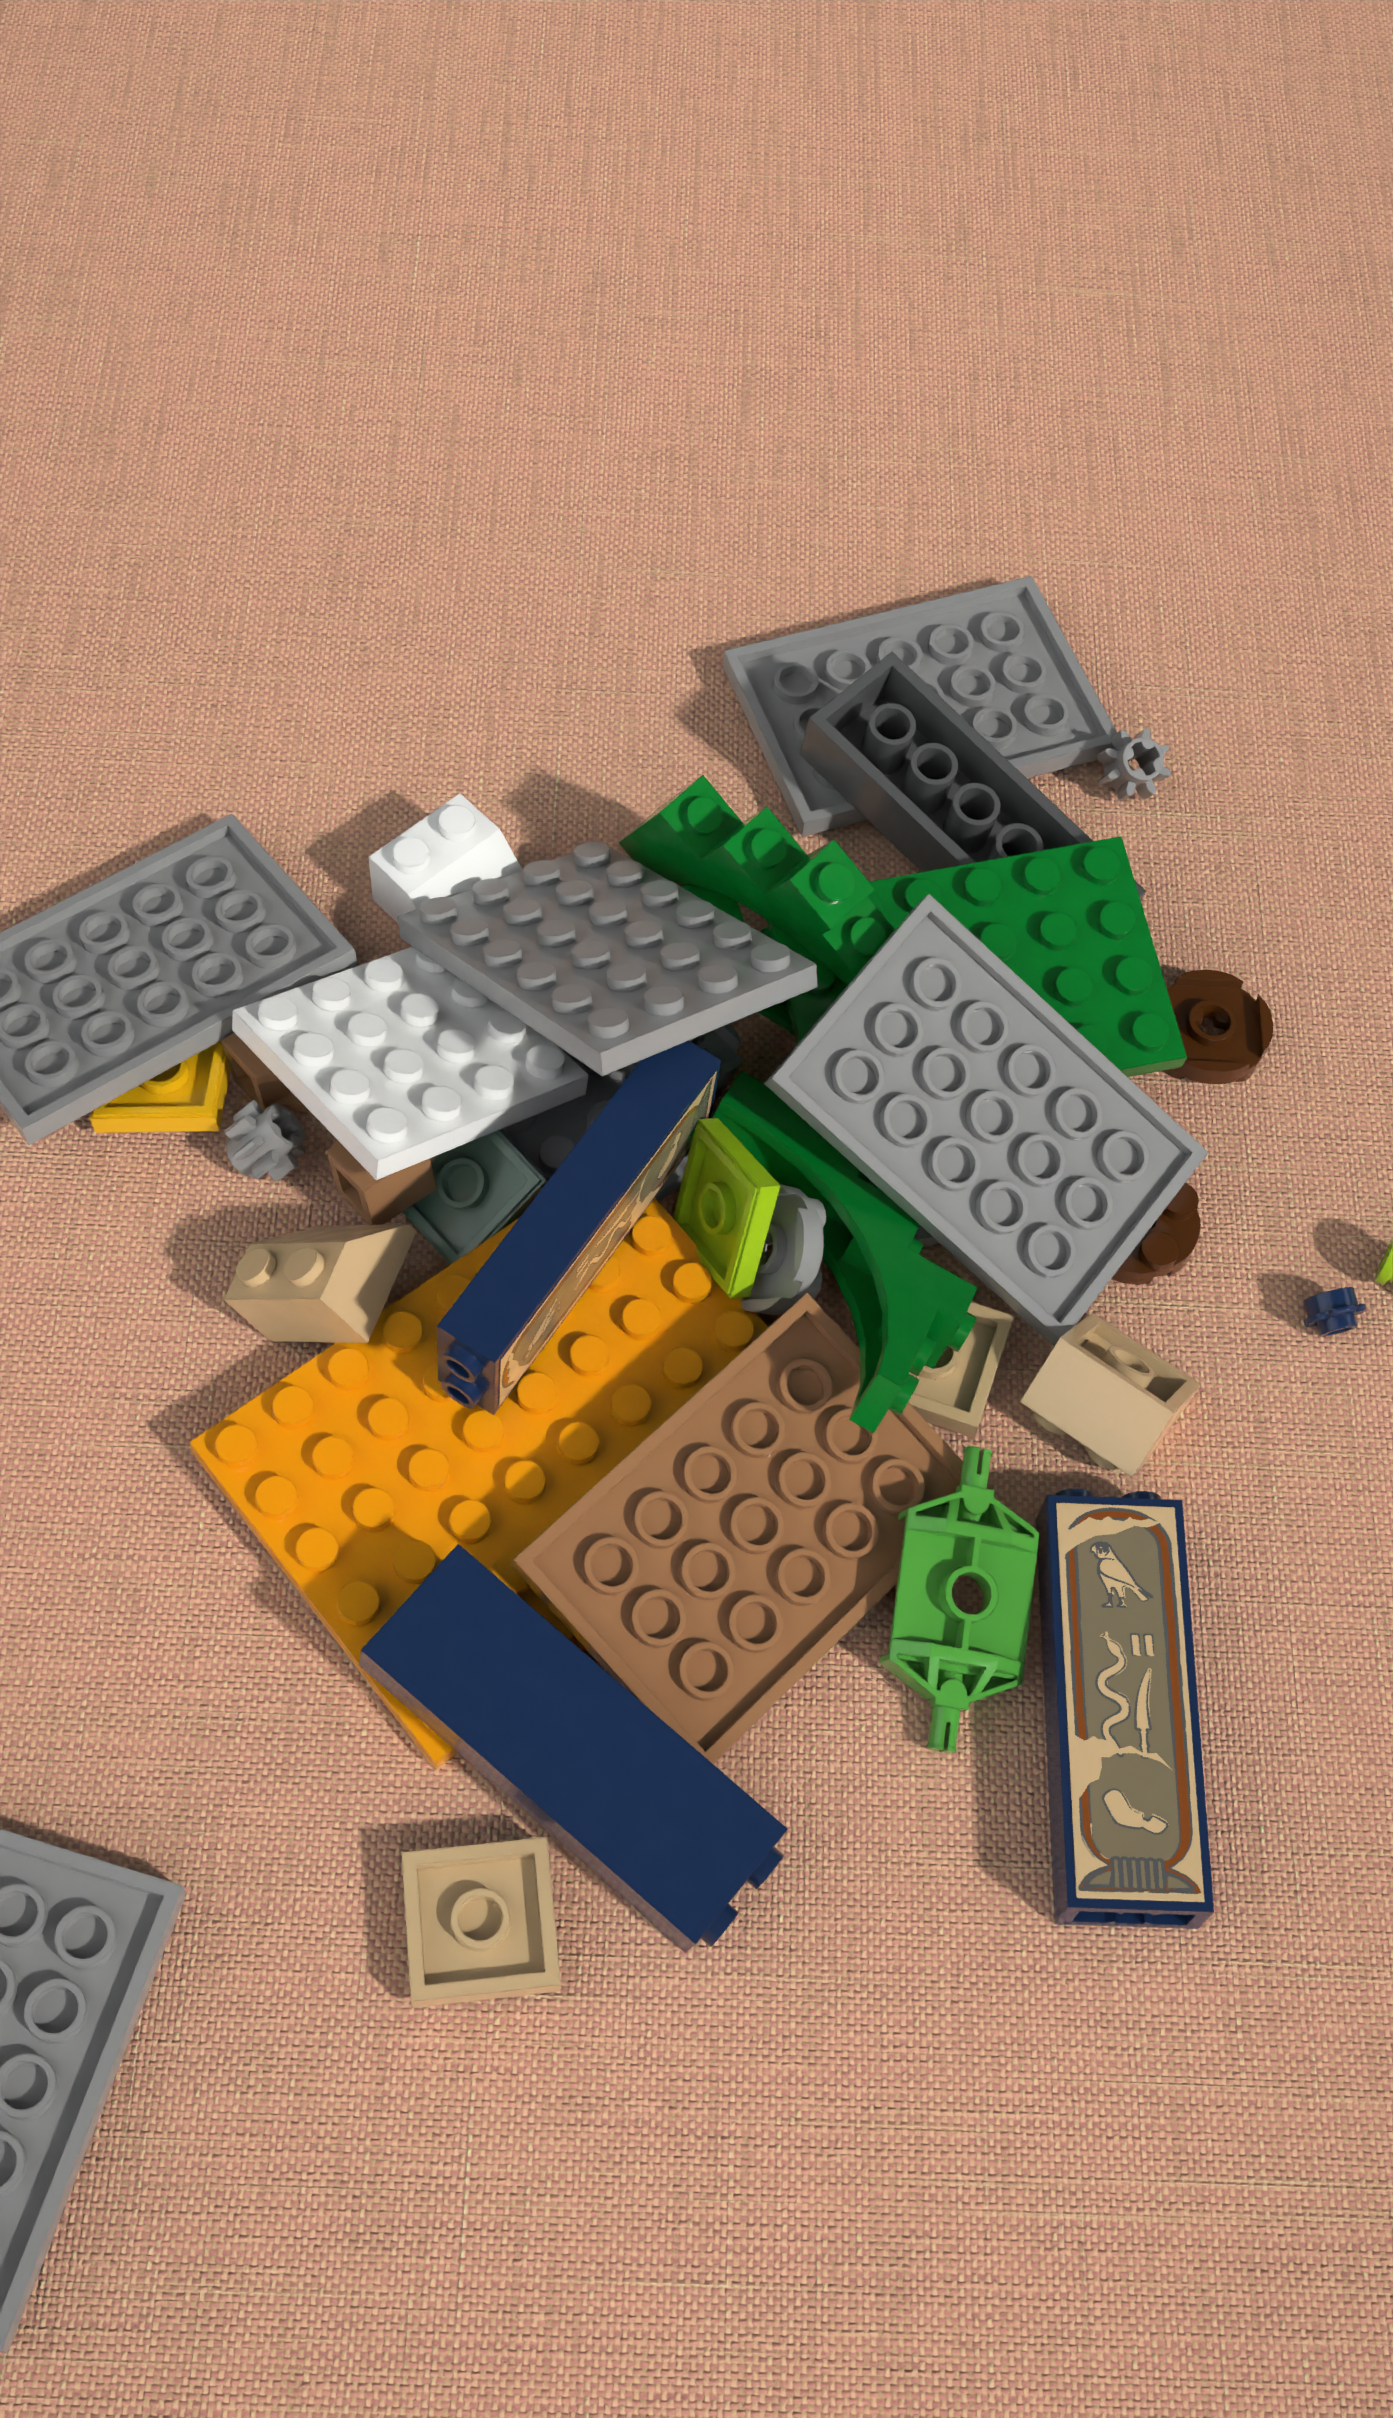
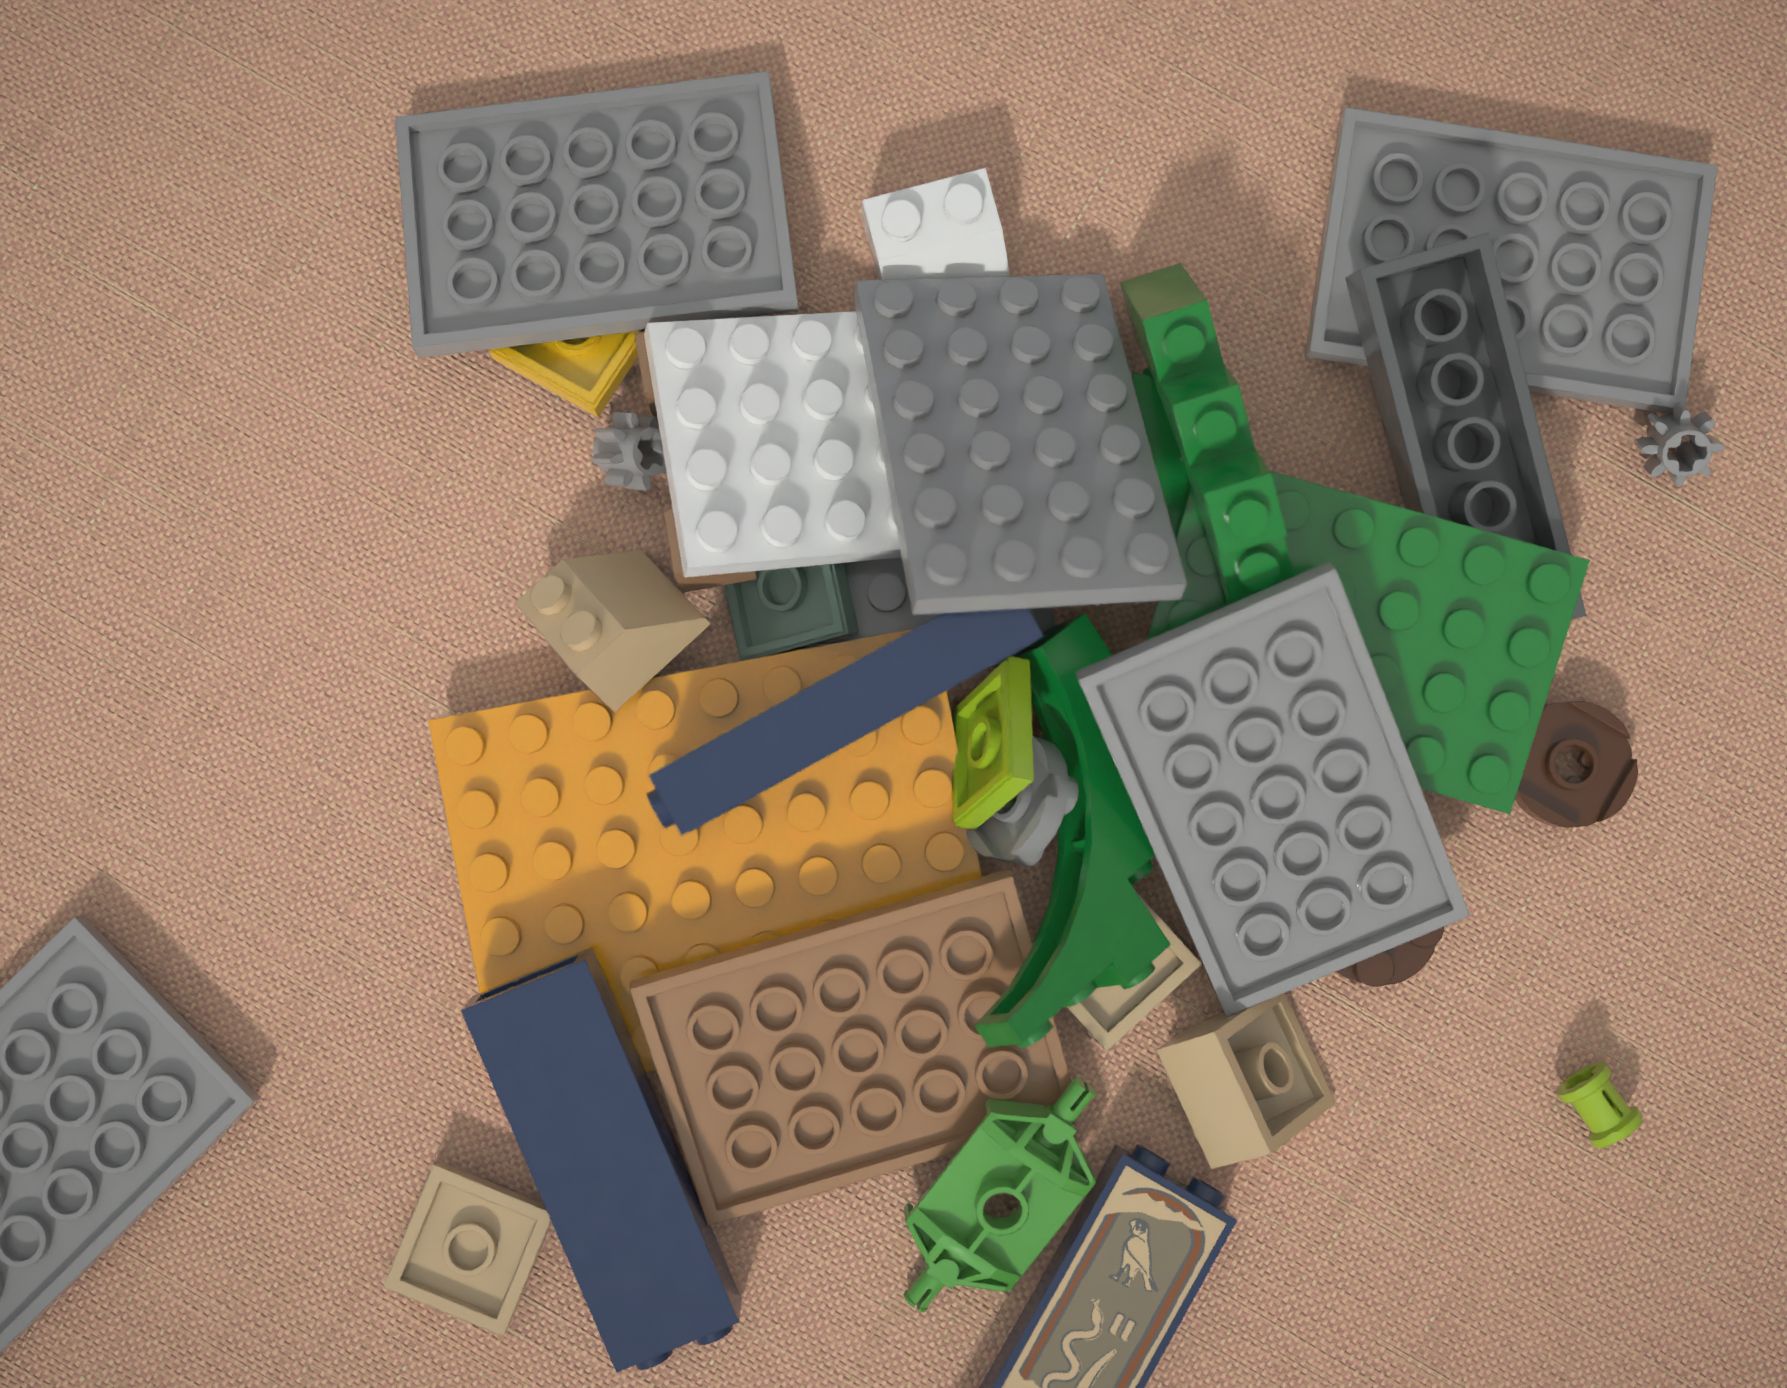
camera: 30 degrees right, 25 degrees up
(1333, 1311) = (1497, 1102): dark blue plate -> none

